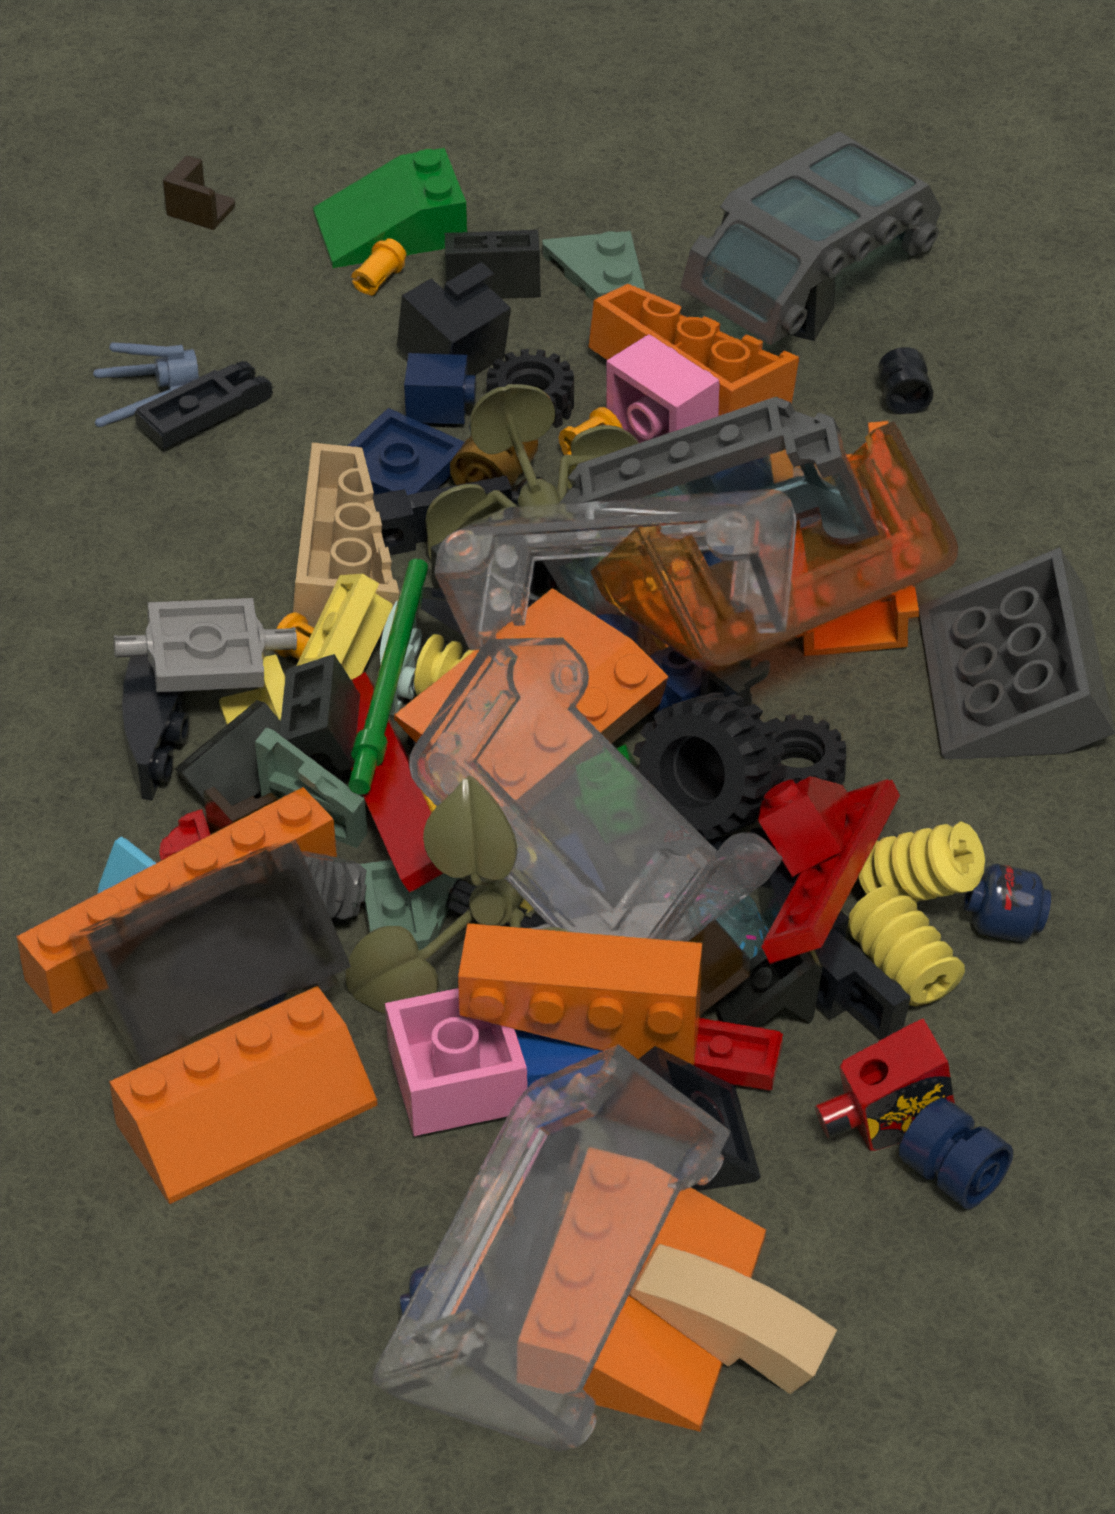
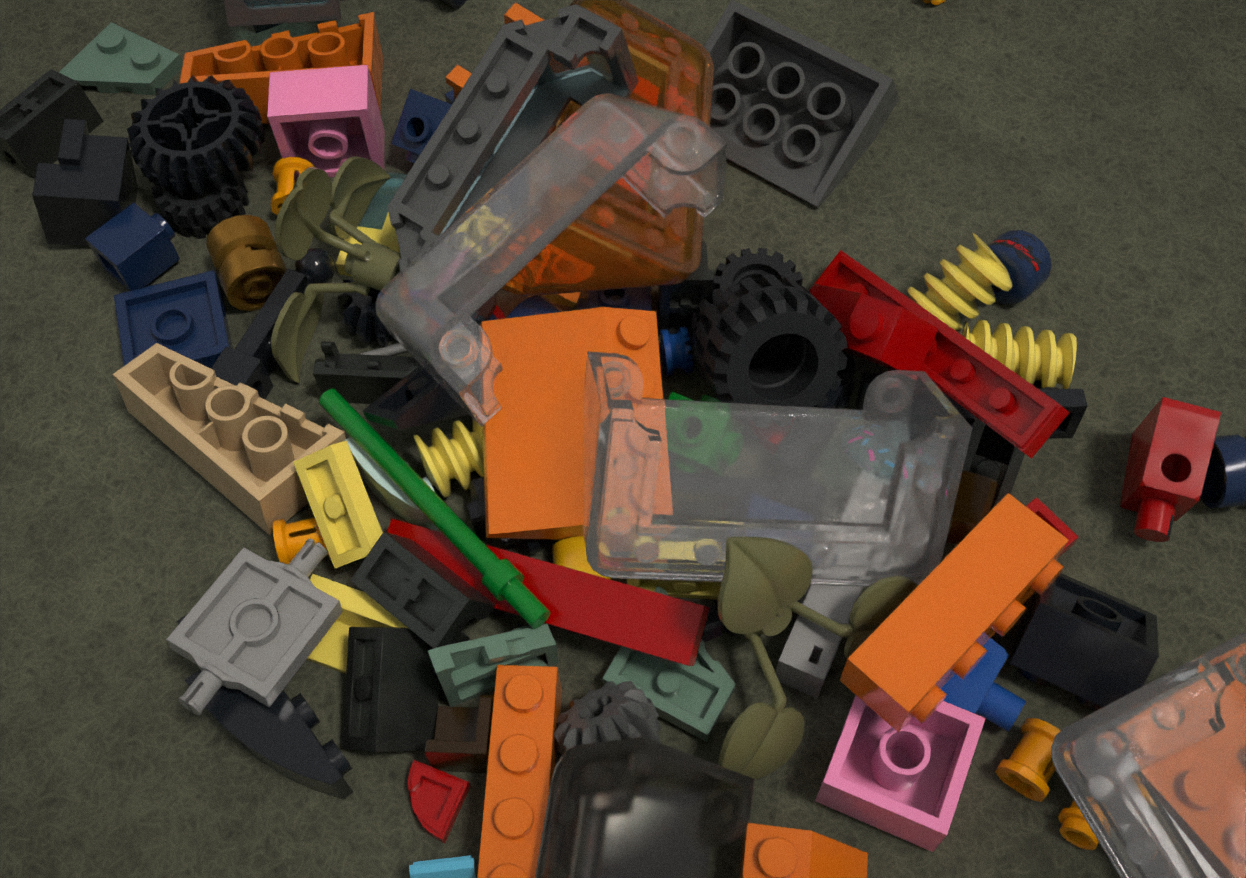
camera: 50 degrees left, 15 degrees up
(559, 342) = (196, 135): none -> black gear

